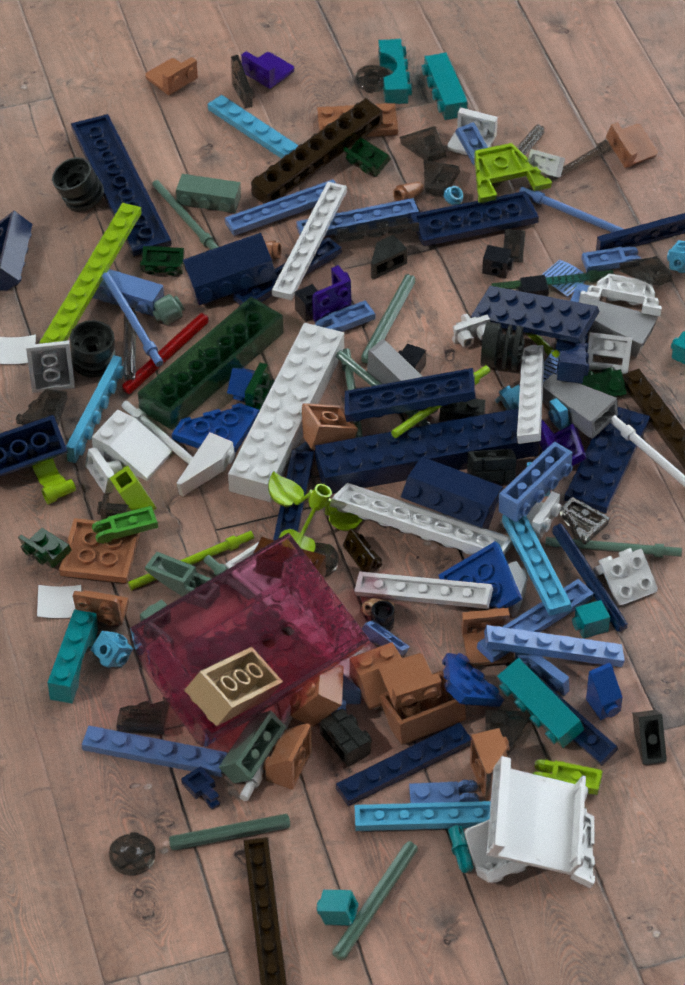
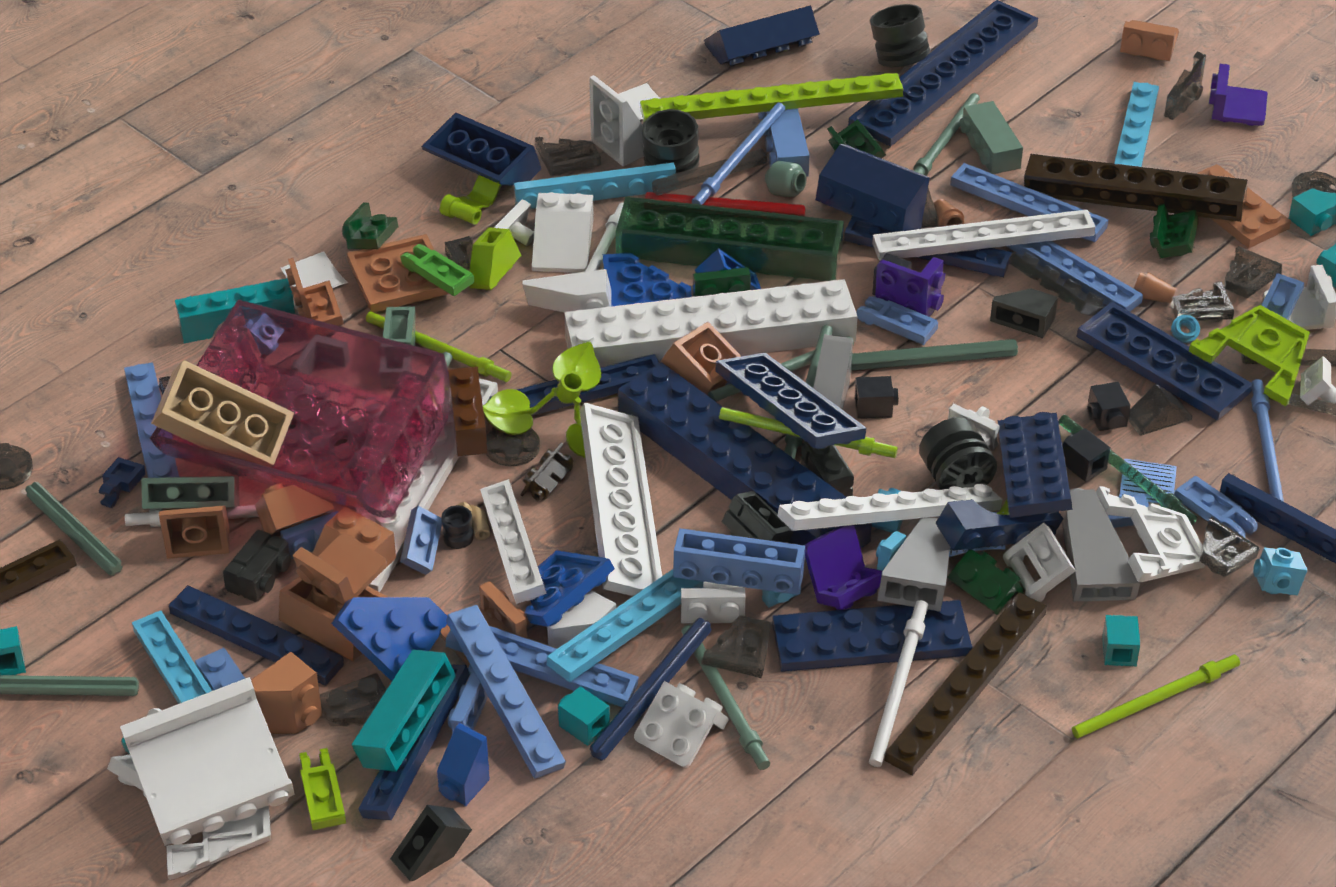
camera: 60 degrees right, 5 degrees down
(452, 492) = (678, 495): dark blue slope -> none

